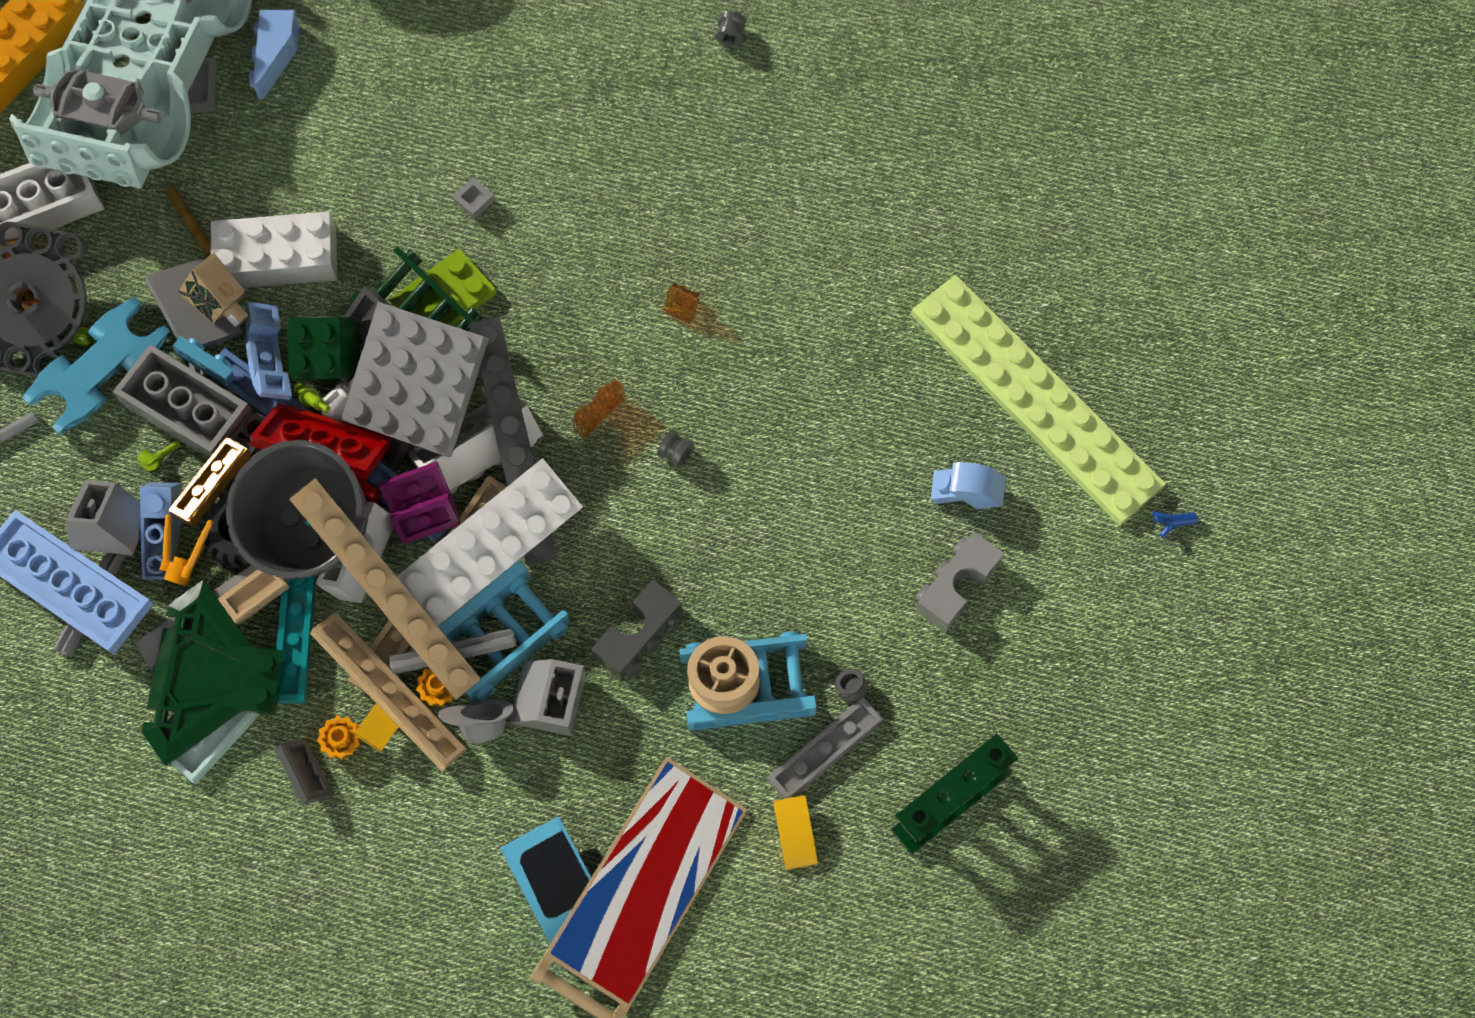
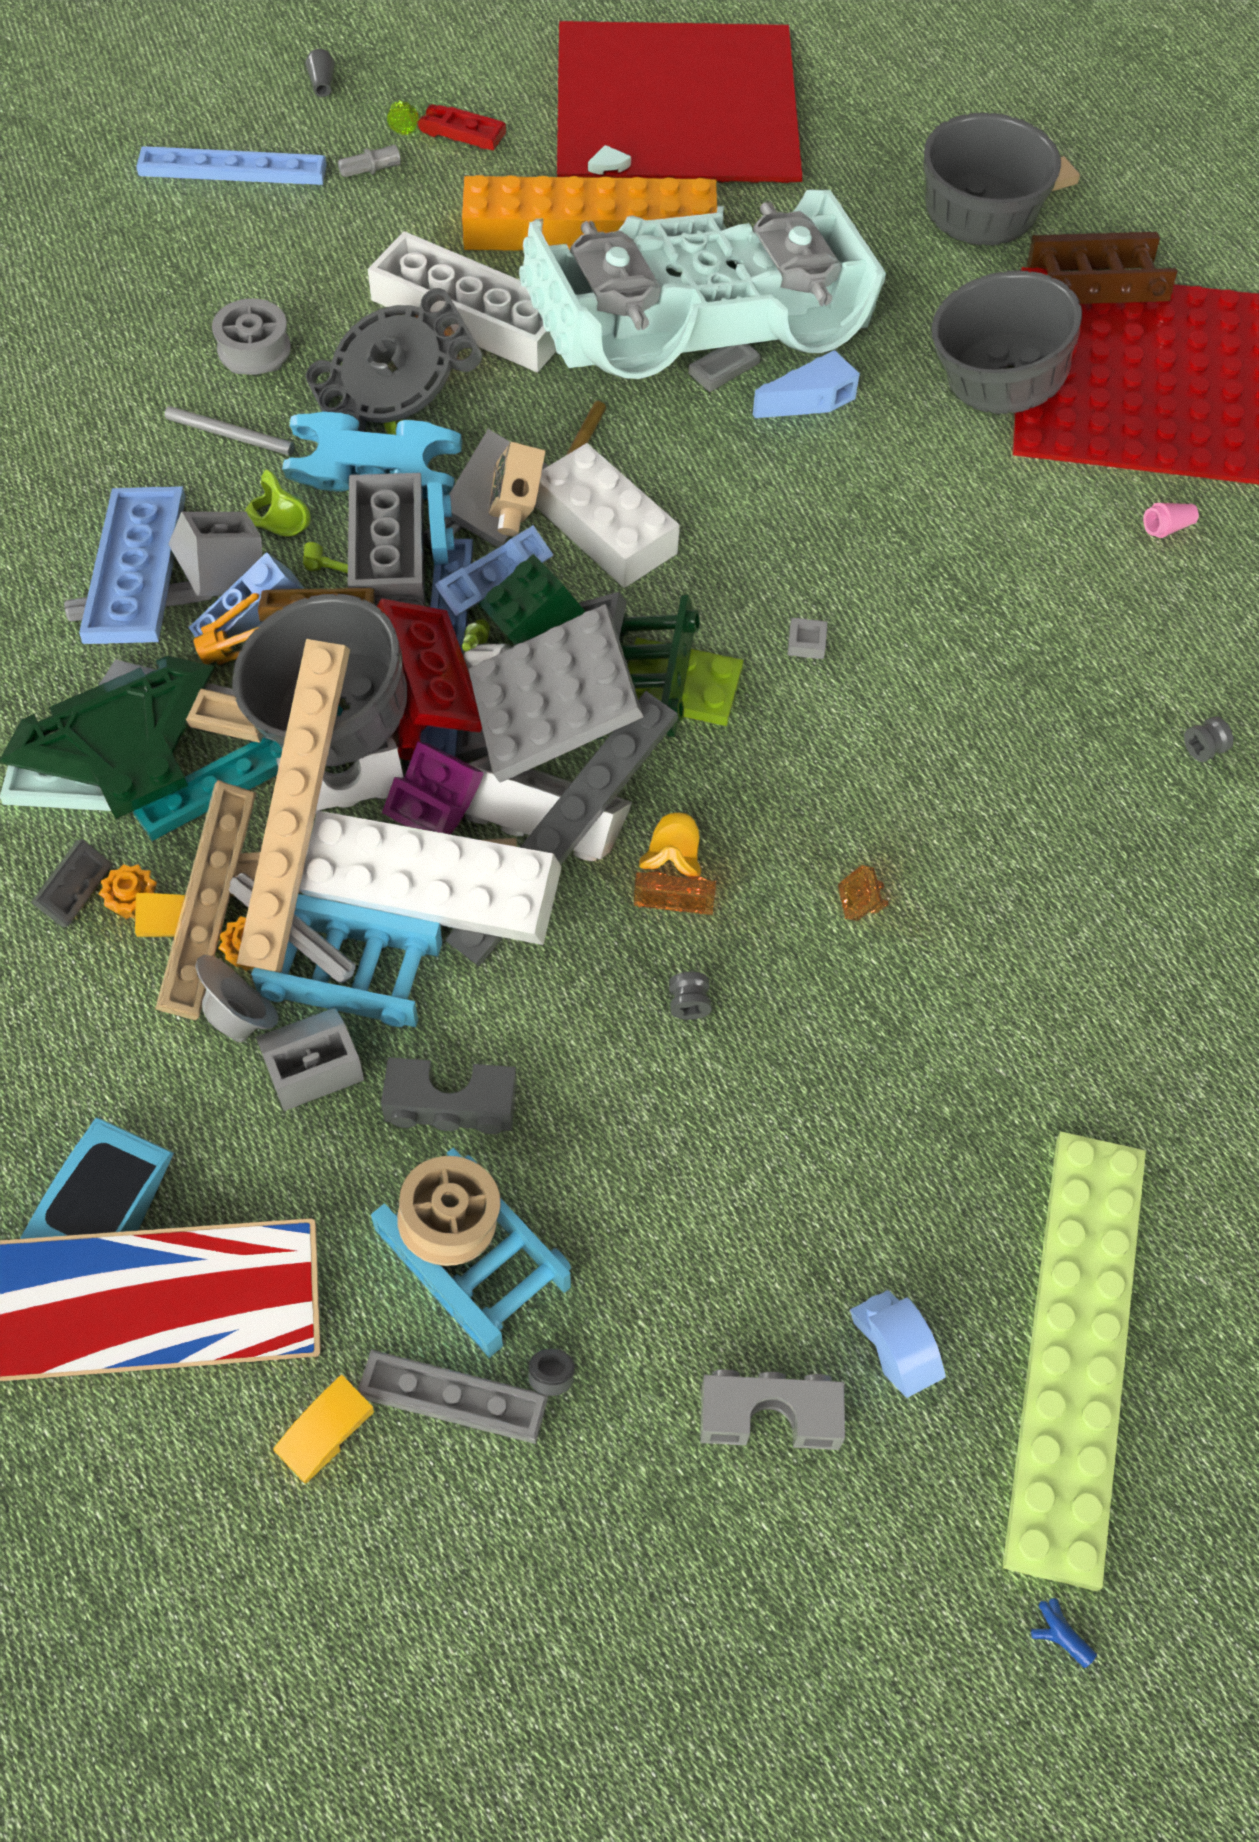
camera: 50 degrees right, 10 degrees down
(101, 453) = (287, 512): none -> lime piece
(559, 380) = (675, 840): none -> yellow piece
(953, 794) = (484, 1584): dark green fence -> none

